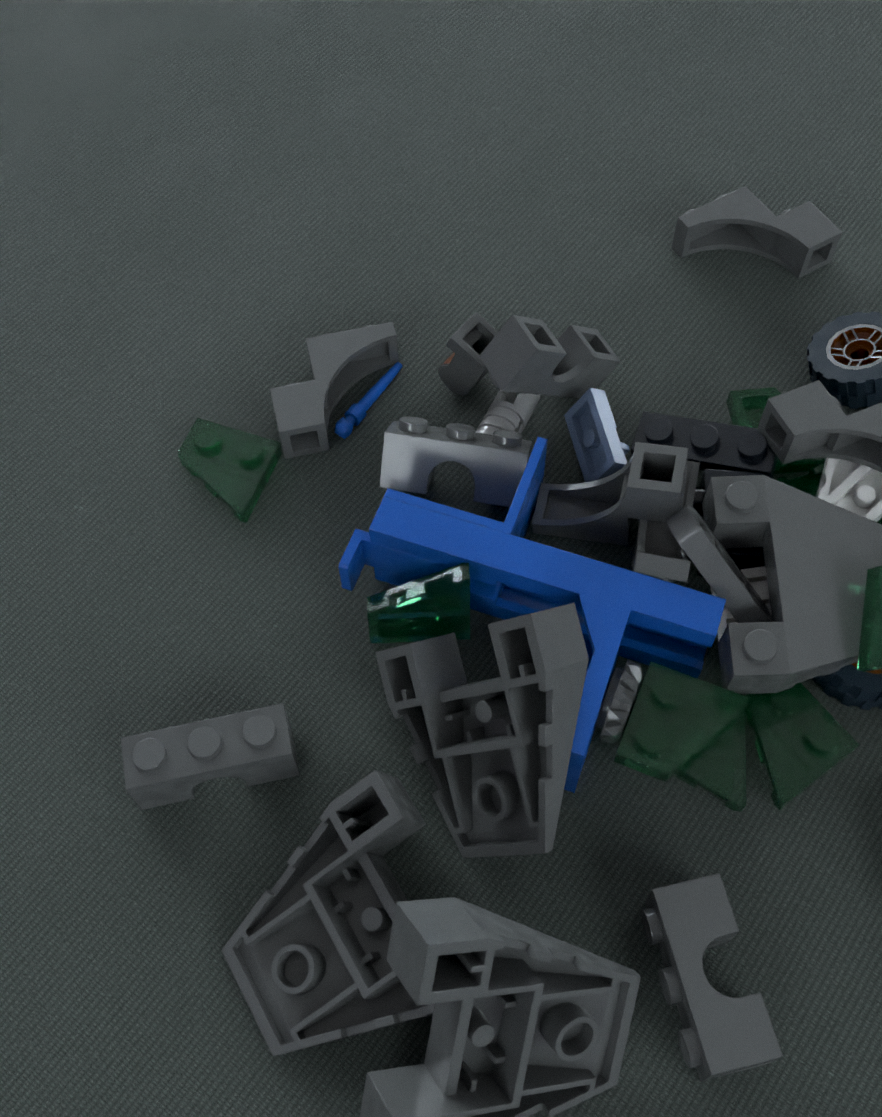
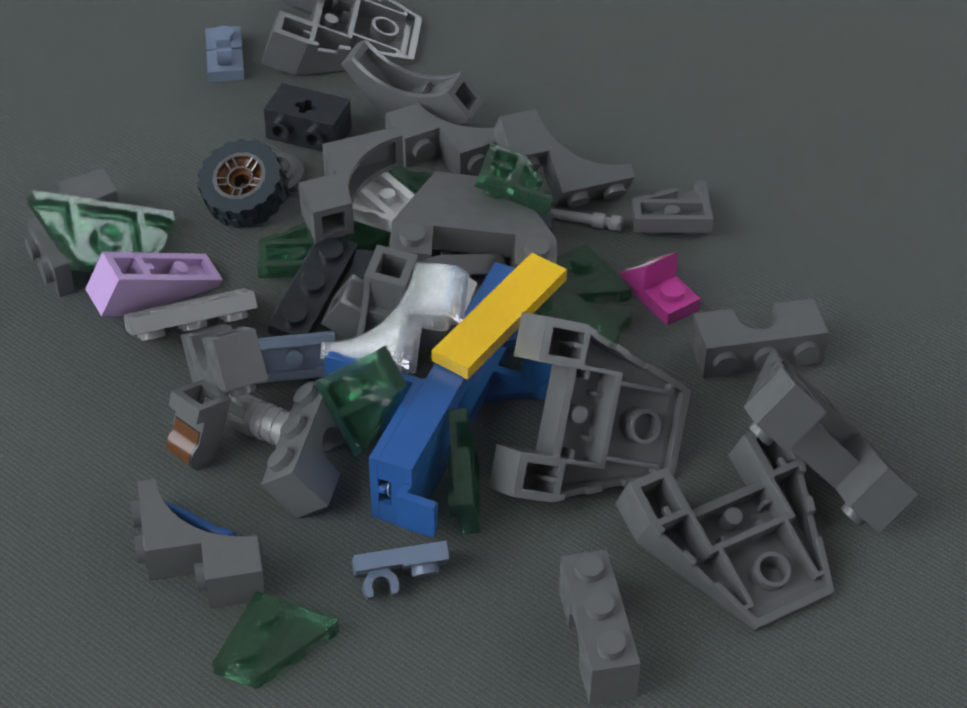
camera: 90 degrees left, 15 degrees down
(309, 558) = (419, 559): none -> sand blue plate
(493, 477) = (362, 396): none -> clear green wing
(611, 520) = (433, 297): none -> clear arch
(622, 605) = (498, 316): none -> yellow tile
(639, 337) = (190, 313): none -> light grey plate
(691, 305) = (148, 280): none -> lavender slope
(742, 254) = (89, 226): none -> clear green wing
(796, 845) = (661, 289): none -> dark pink slope

